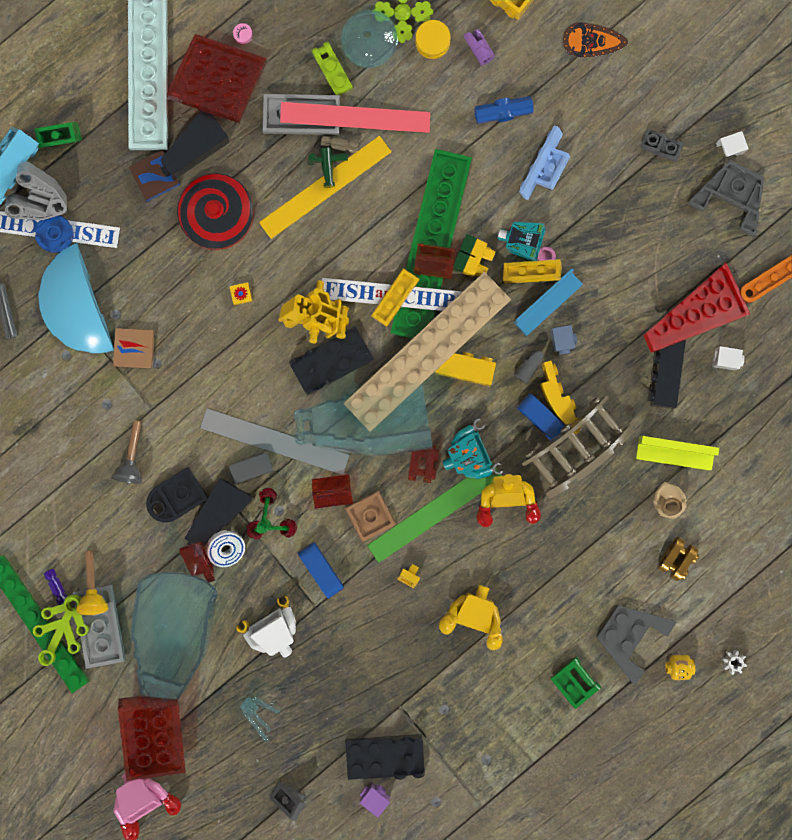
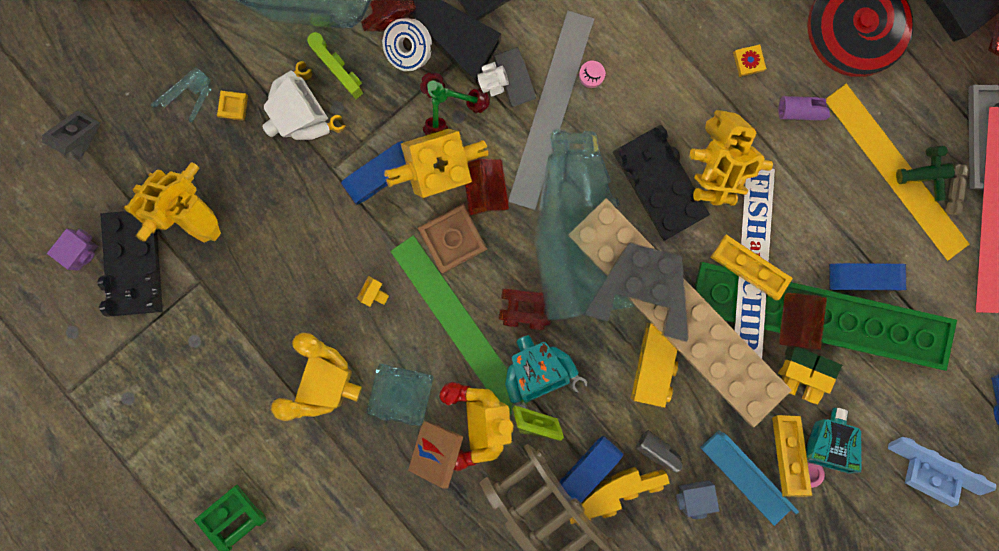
camera: 85 degrees right, 0 degrees up
(239, 602) = (335, 64): none -> lime plate
(249, 411) = (592, 74): none -> bright pink tile
(253, 485) = (493, 79): none -> white gear
(267, 680) = (232, 105): none -> yellow tile
(277, 255) = (803, 108): none -> medium lavender hinge
(323, 519) = (423, 153): none -> yellow brick
(340, 724) = (172, 200): none -> yellow piece
(402, 212) = (867, 276): none -> blue beam
(402, 373) = (647, 277): none -> dark grey wing
(485, 556) = (399, 395): none -> clear light blue slope
(507, 455) = (537, 424): none -> lime slope
(528, 530) = (435, 454): none -> medium nougat tile

